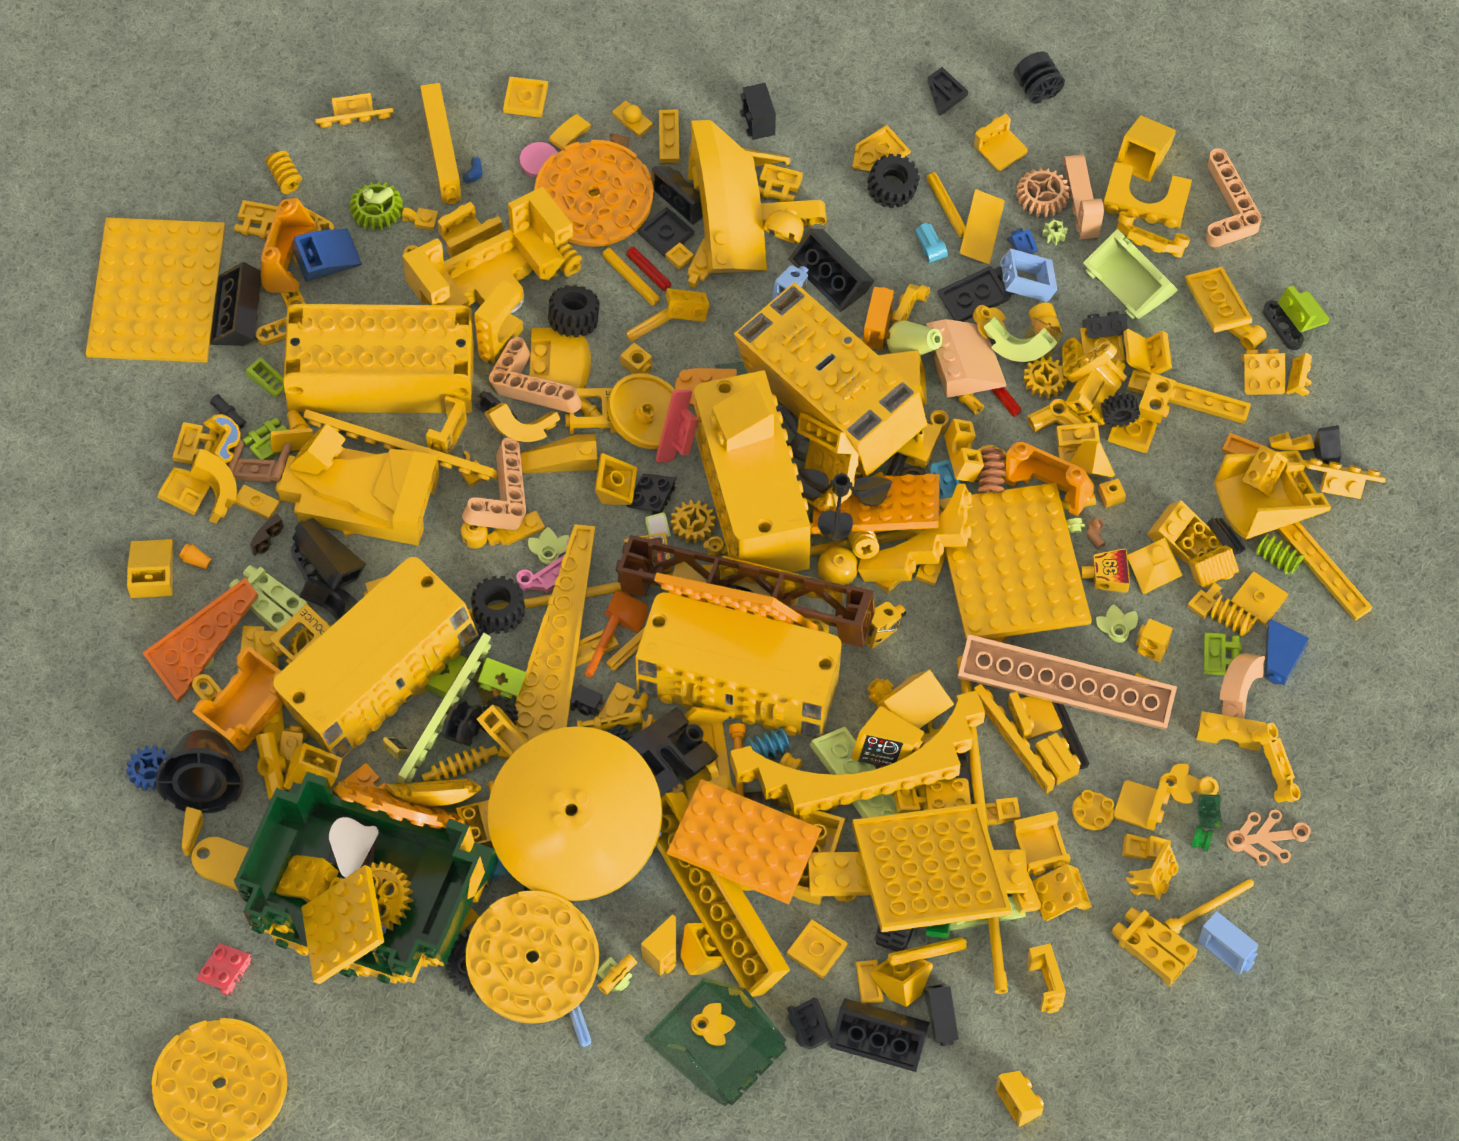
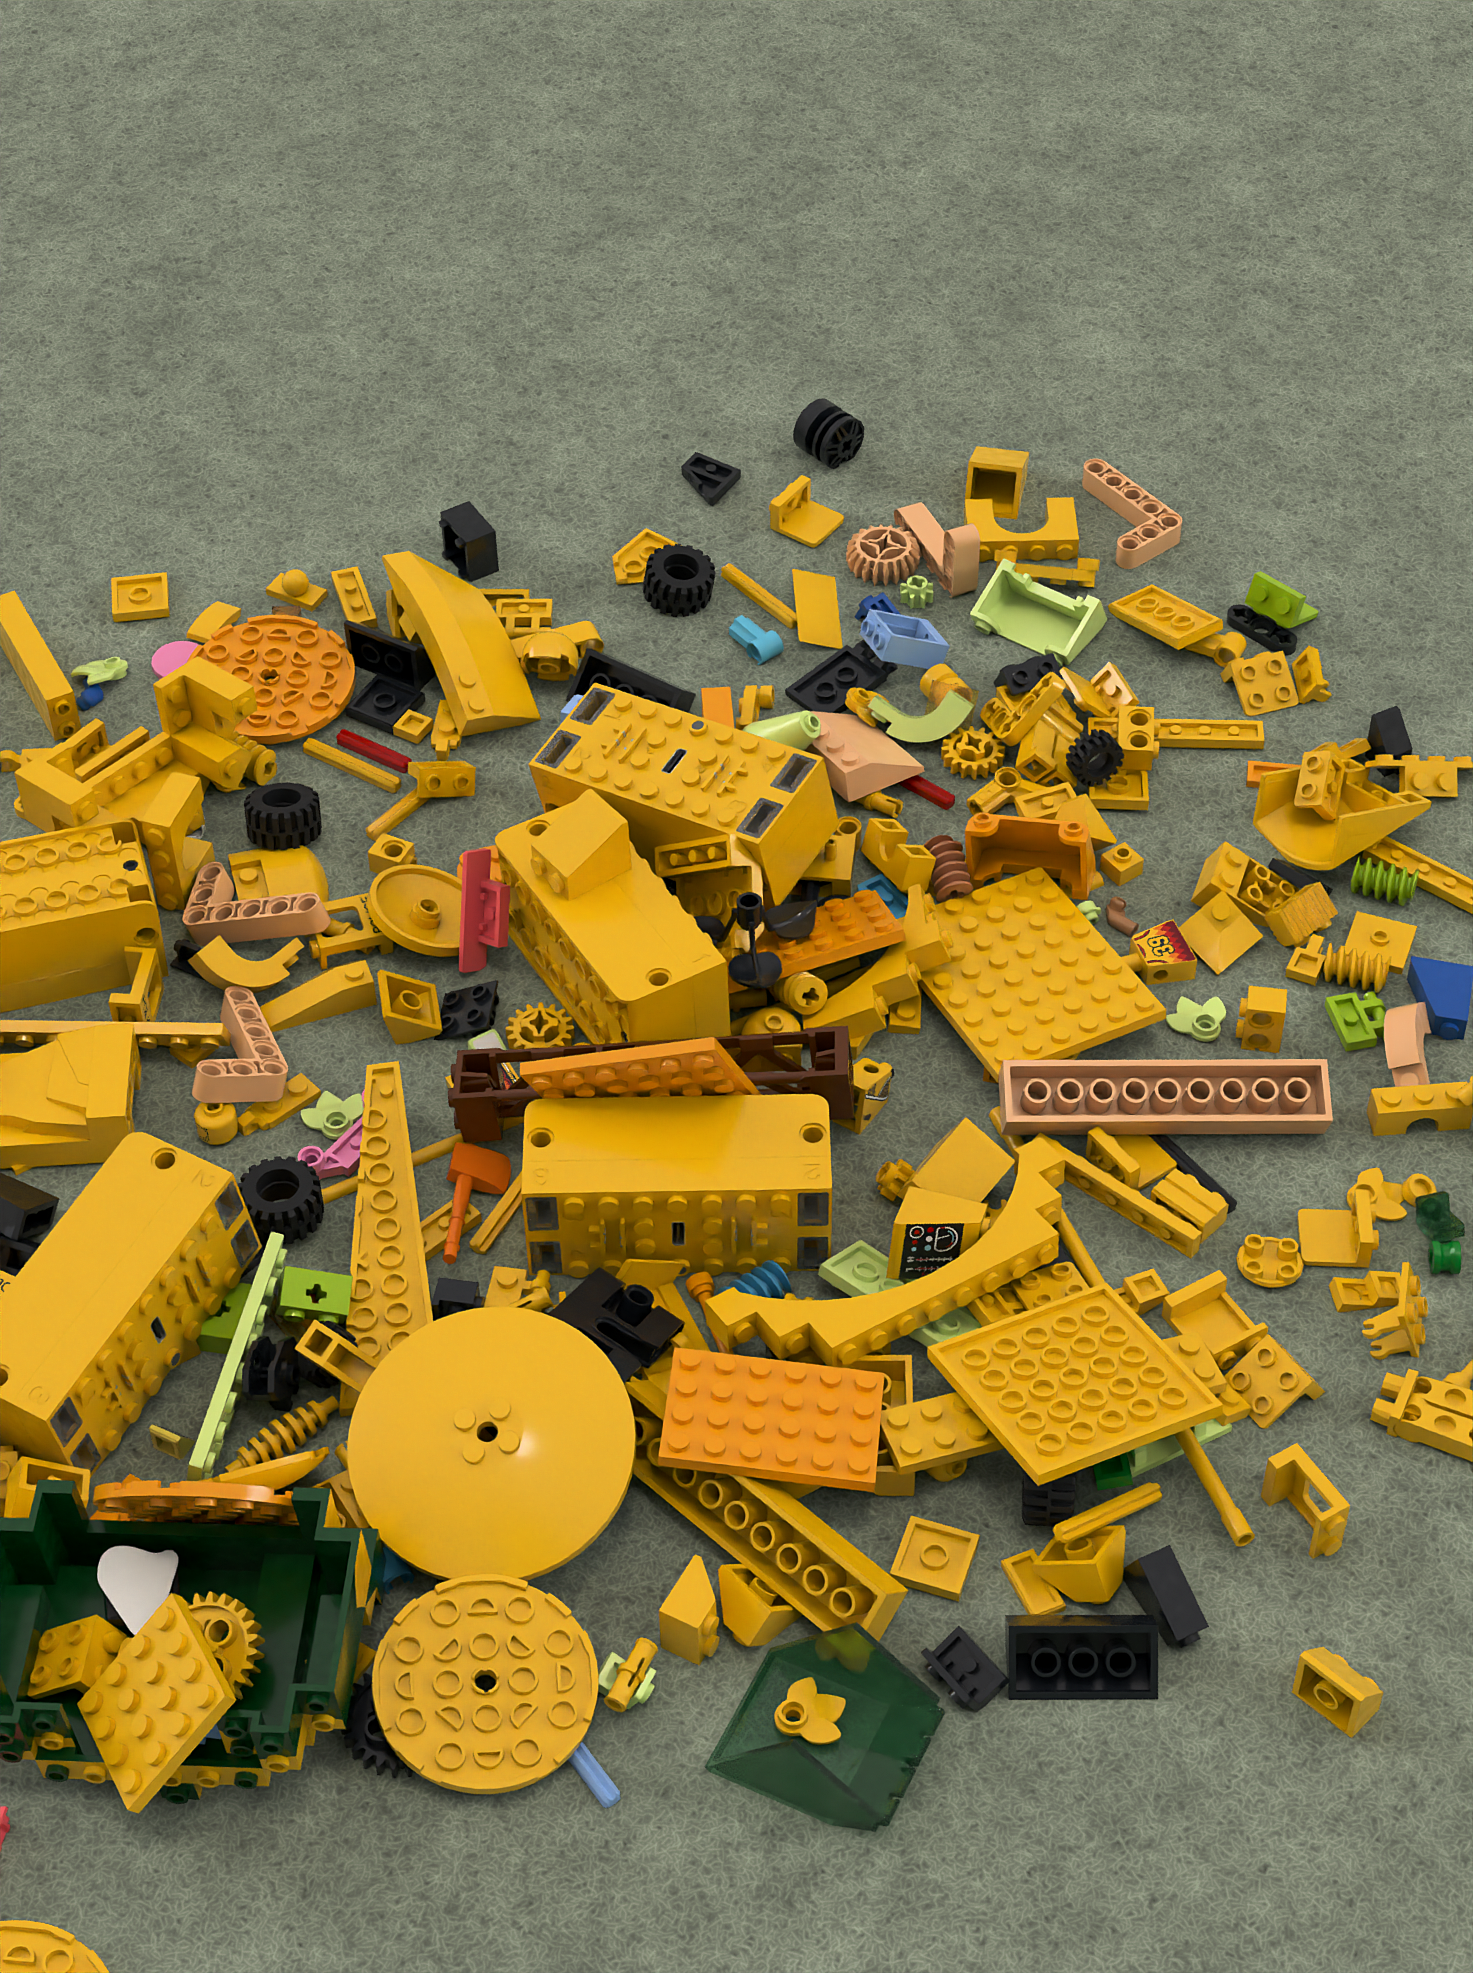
camera: 15 degrees left, 15 degrees down
(485, 154) = (102, 670): none -> yellowish green plate

